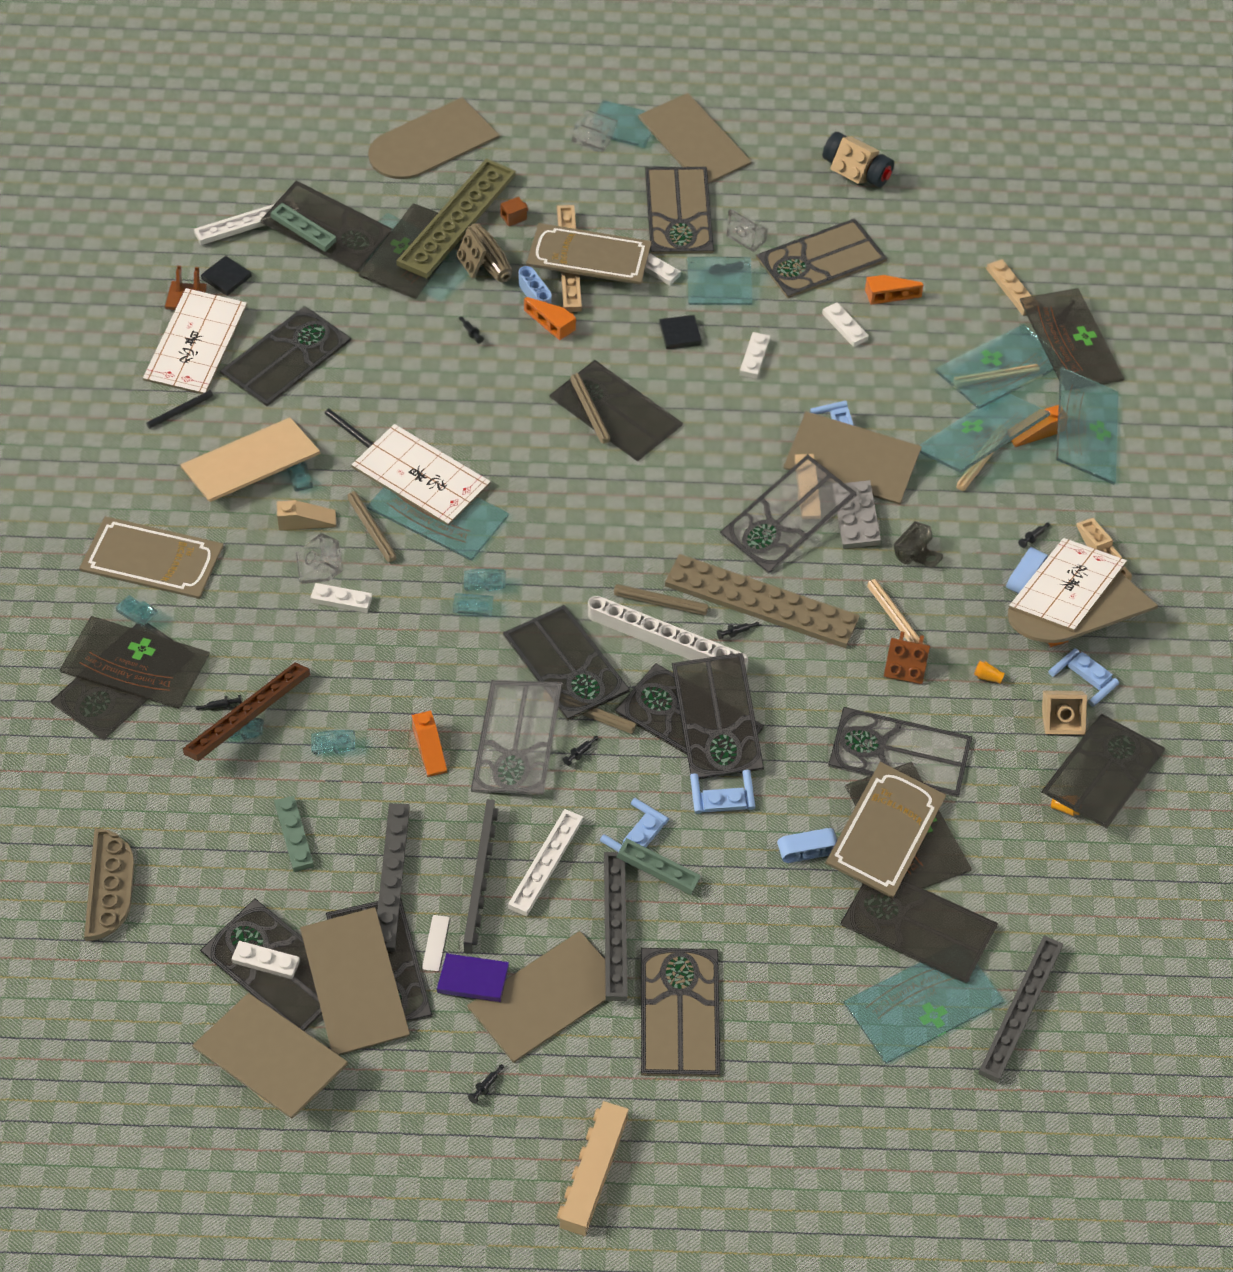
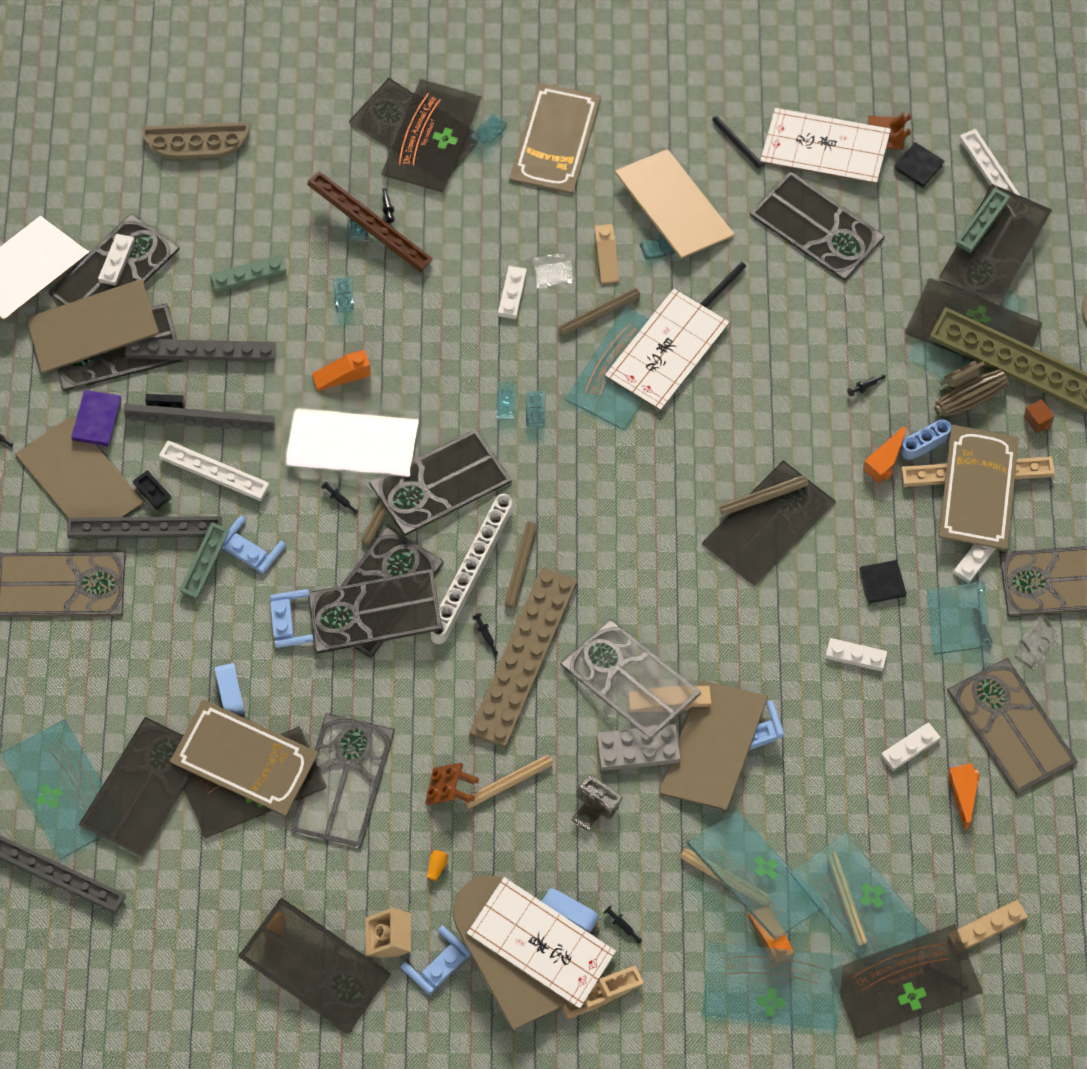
camera: 90 degrees right, 10 degrees up
(435, 943) = (133, 389): white sticker -> none
(458, 915) = (164, 400): none -> black plate
(567, 920) = (152, 490): none -> black plate

